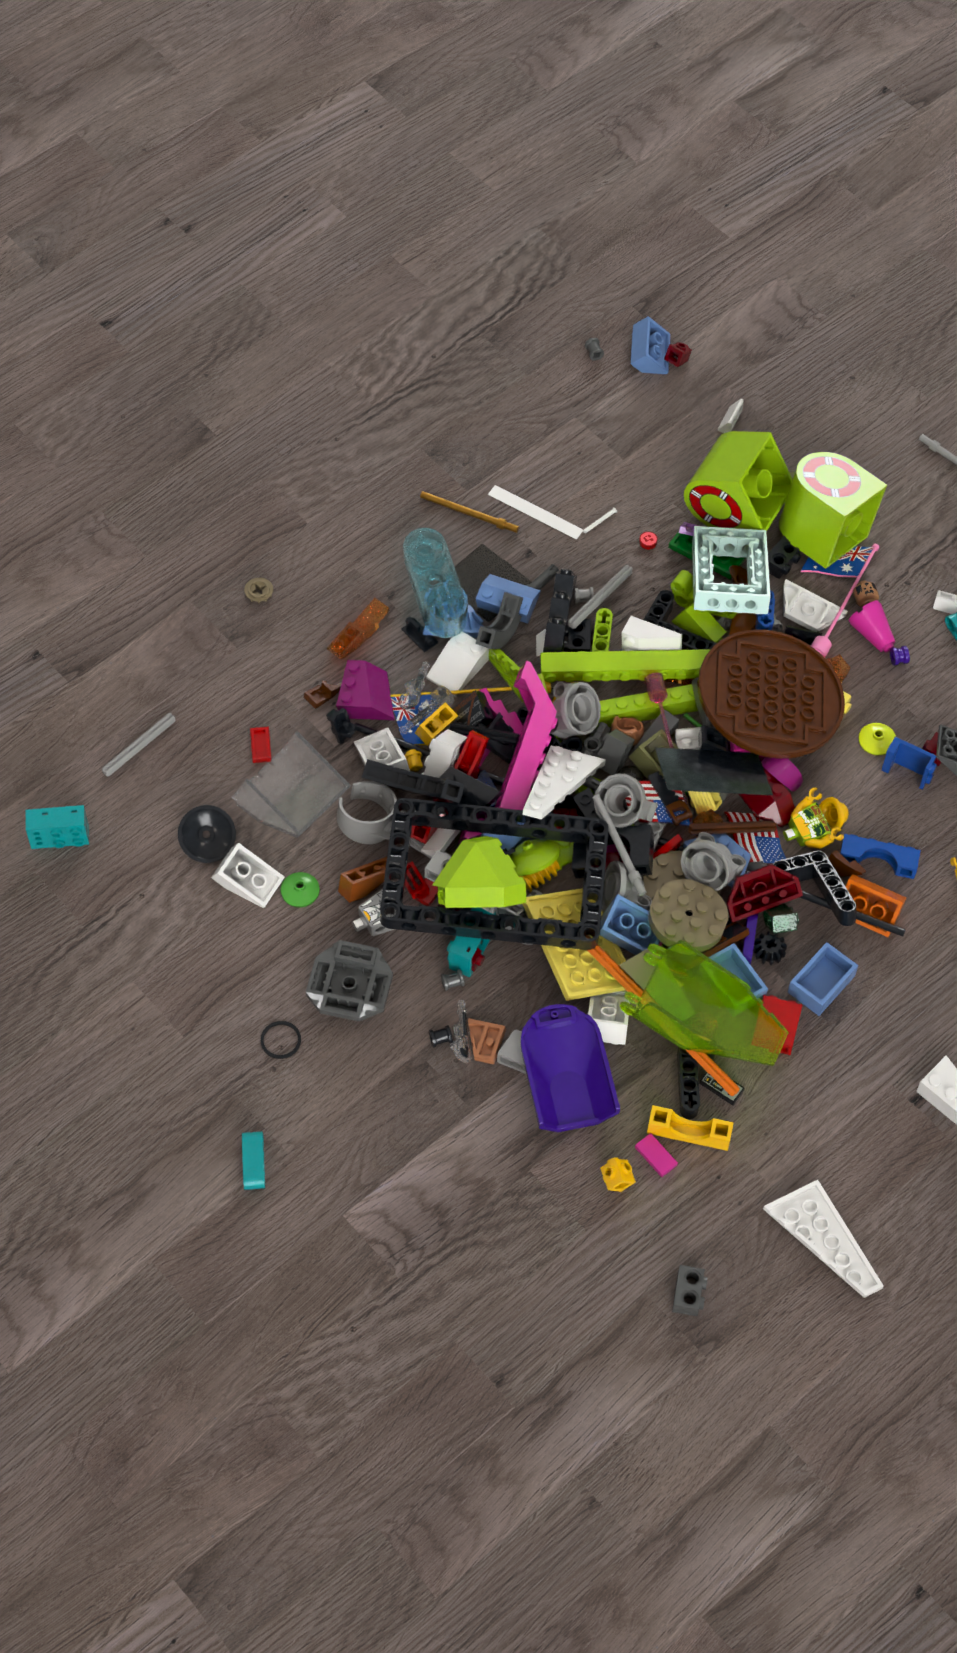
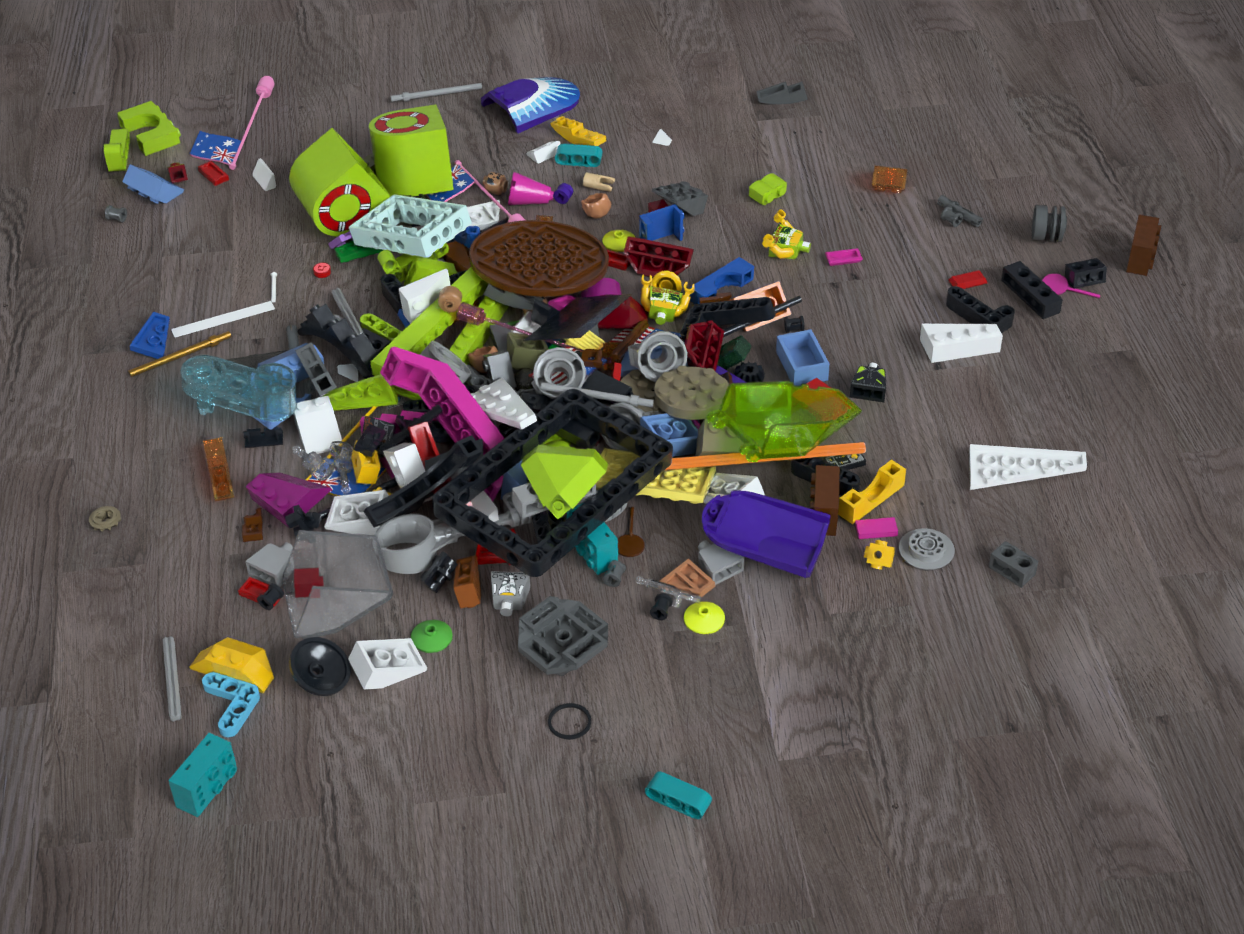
camera: 55 degrees left, 15 degrees down
(152, 799) = (238, 699): none -> medium azure beam
(179, 776) = (236, 661): none -> yellow wedge
(252, 754) = (270, 596): none -> black bush
(284, 769) = (305, 579): none -> dark red brick
(286, 726) = (269, 563): none -> light grey torso
(359, 853) = (439, 572): none -> black hips
(453, 712) = (370, 440): none -> black hinge
(455, 1083) = (704, 617): none -> neon yellow dish
(472, 479) = (152, 337): none -> blue wing
(499, 972) = (630, 544): none -> reddish brown piece
(653, 661) = (450, 299): none -> medium nougat head
(658, 1089) = (826, 494): none -> reddish brown brick
(661, 1206) = (927, 544): none -> light grey wheel
(662, 298) = (117, 150): none -> lime beam
(706, 378) = (213, 173): none -> red tile
(722, 309) = (150, 115): none -> lime arch
(743, 359) = (224, 148): none -> flag
(838, 1052) = (869, 383): none -> black torso
(845, 749) = (618, 260): none -> red tile
(866, 783) = (653, 257): none -> dark red wedge
(871, 947) = (798, 324): none -> black bush
(902, 691) = (596, 205): none -> nougat hair
(940, 671) = (596, 181): none -> tan hinge

